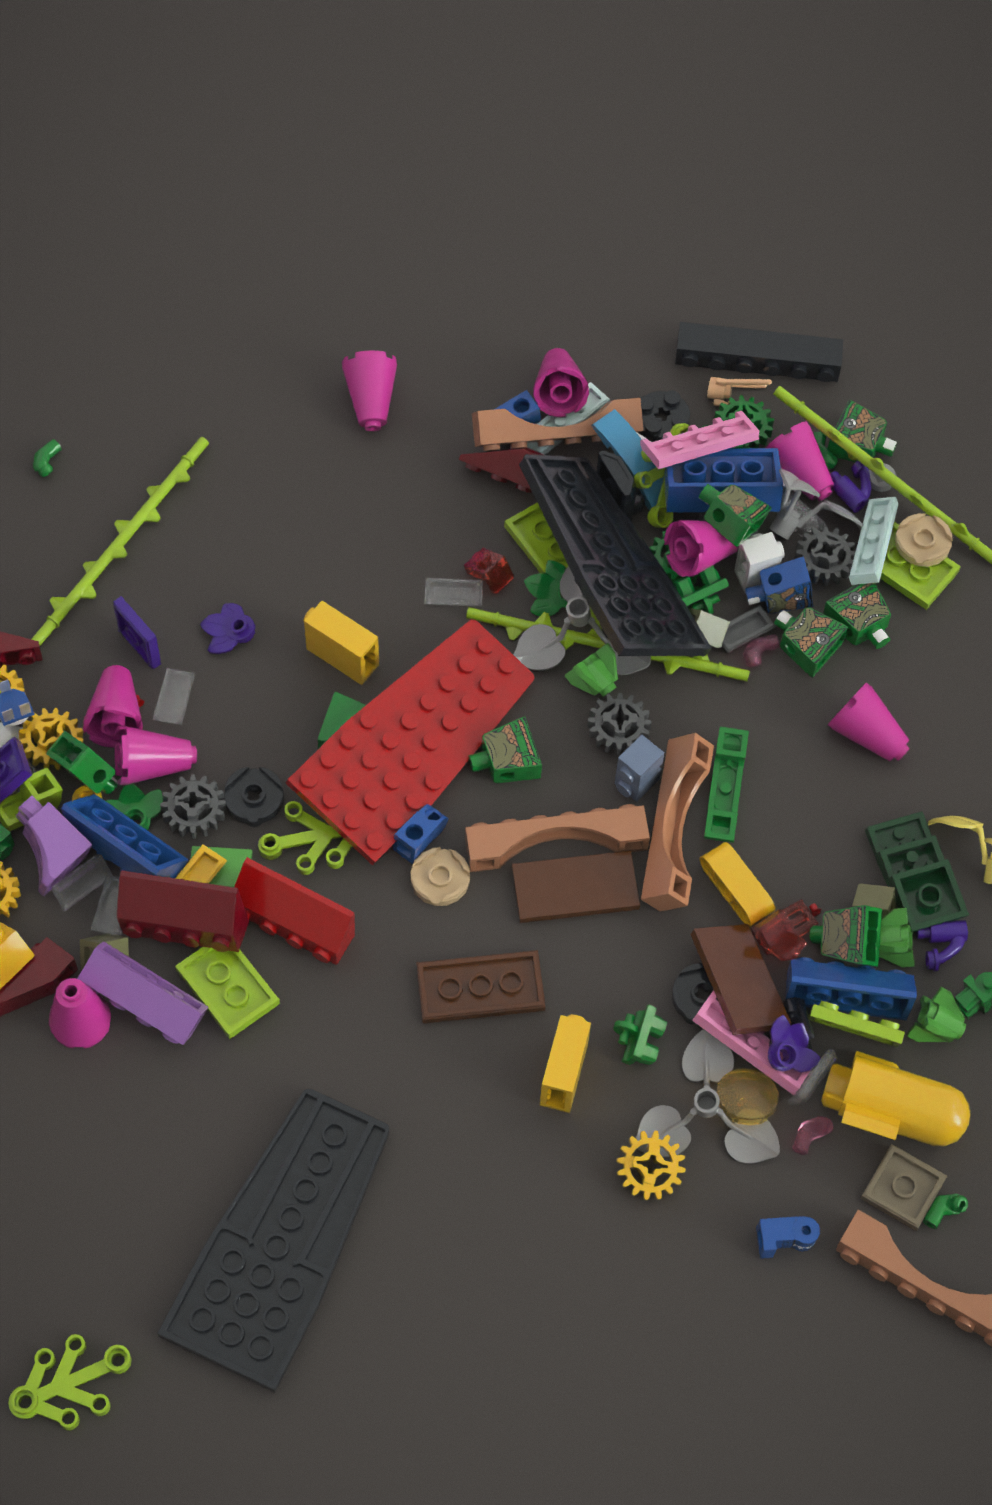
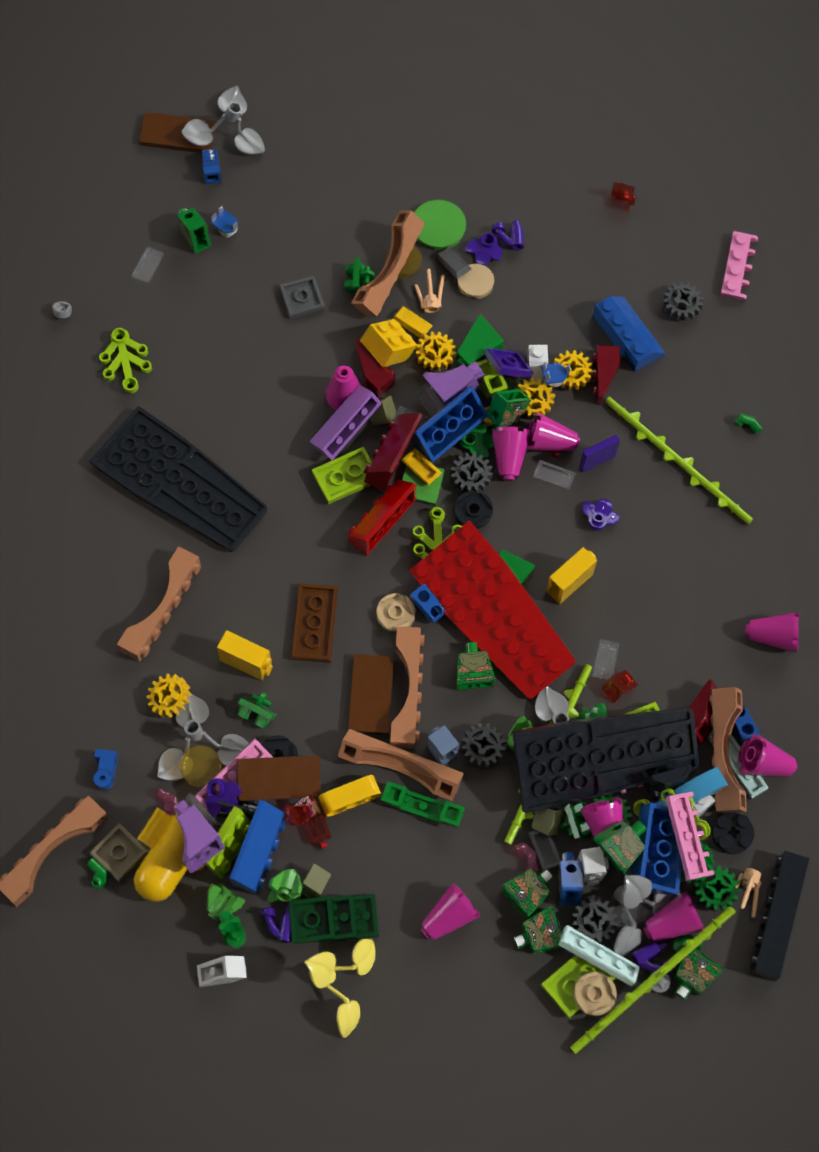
camera: 100 degrees right, 5 degrees up
(440, 1196) = (138, 638): none -> nougat arch
(850, 934) = (290, 855): torso -> none
(881, 1038) = (200, 838): none -> medium lavender hips

